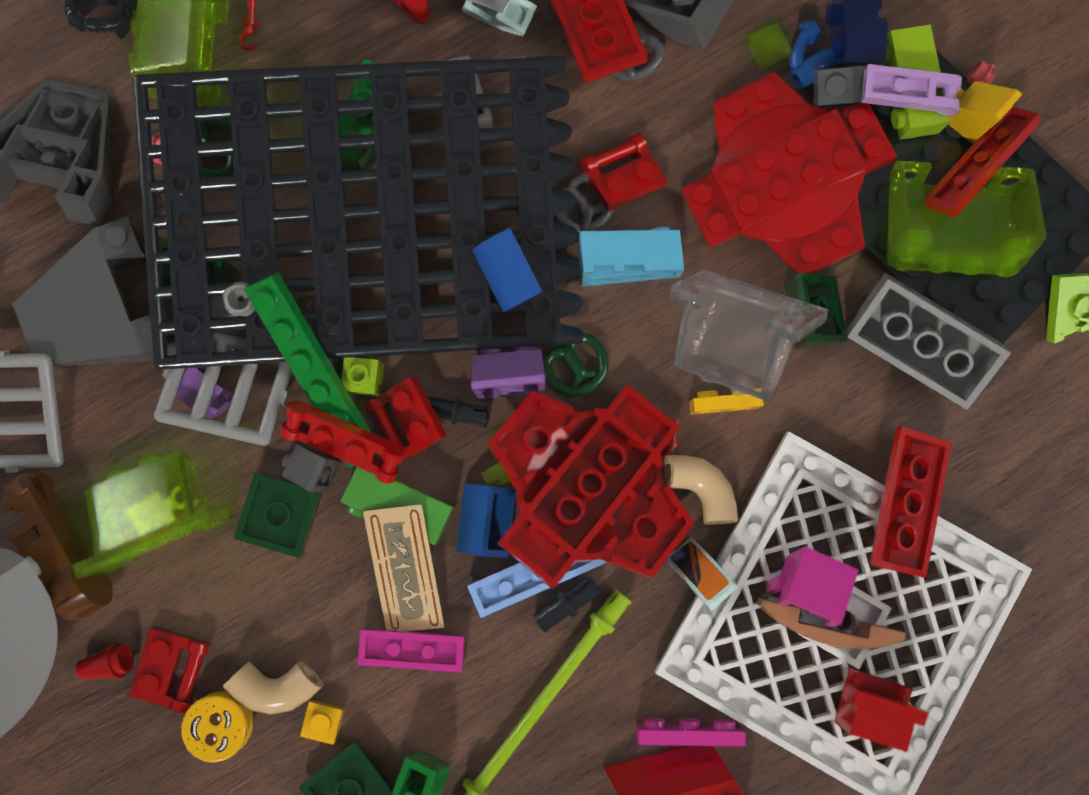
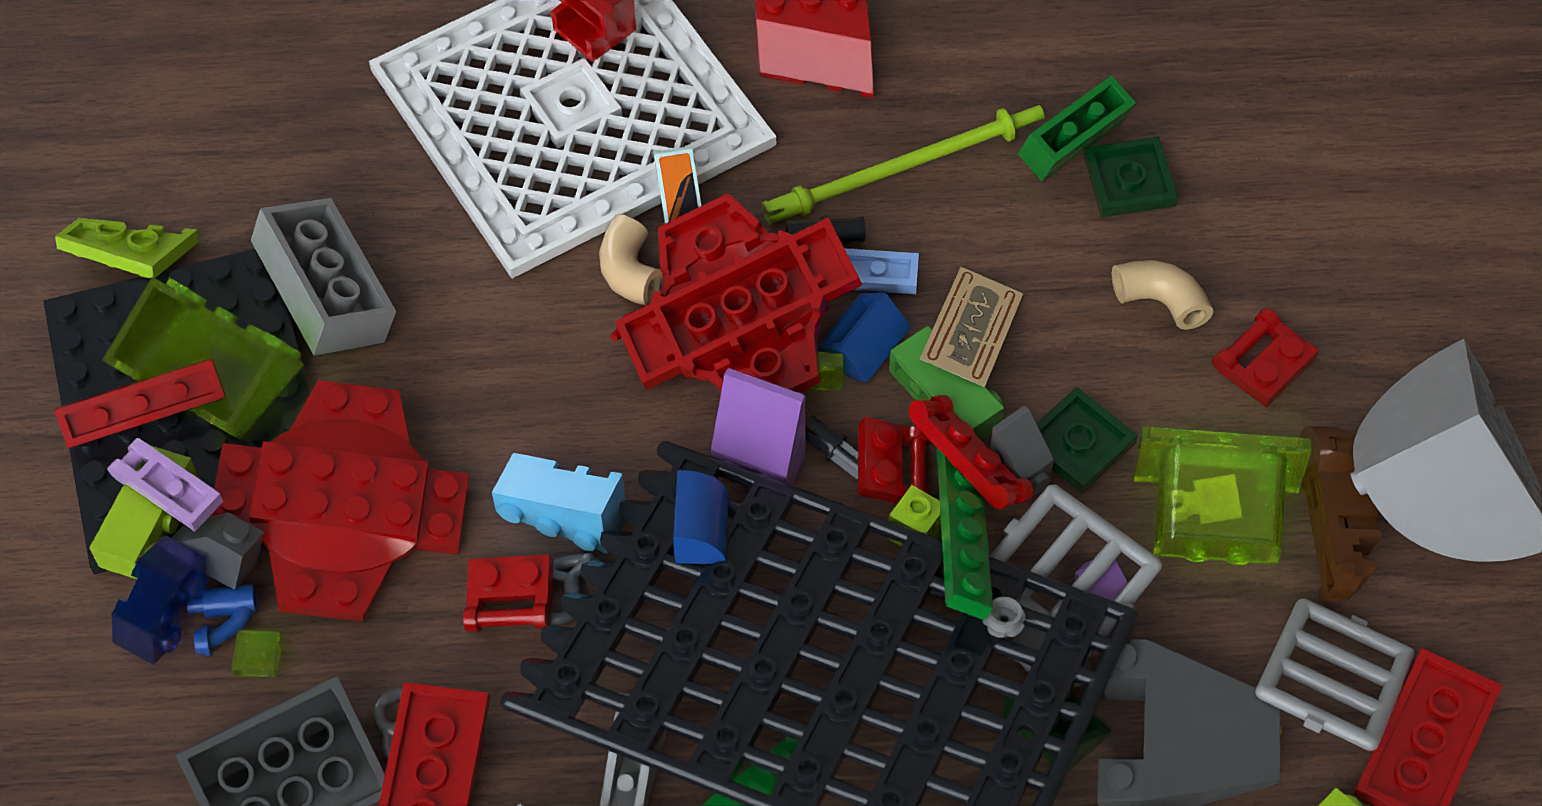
camera: 150 degrees left, 25 degrees down
(106, 664) = (1330, 388): red cone -> none
(216, 727) = (1237, 283): yellow head -> none
(322, 722) = (1128, 244): yellow plate -> none
(411, 650) = (1004, 261): dark pink plate -> none
(580, 372) = (682, 427): dark green piece -> none
(690, 733) = (775, 79): dark pink plate -> none
(711, 403) = (554, 324): yellow plate -> none
(739, 332) = (494, 362): clear windscreen -> none
(814, 584) = (584, 118): dark pink plate -> none
(822, 292) = (410, 361): dark green slope -> none
(868, 636) = (559, 67): nougat slope -> none
(910, 502) = (439, 153): red slope -> none
(981, 72) = (63, 504): coral plate -> none
(982, 108) = (101, 438): yellow slope -> none

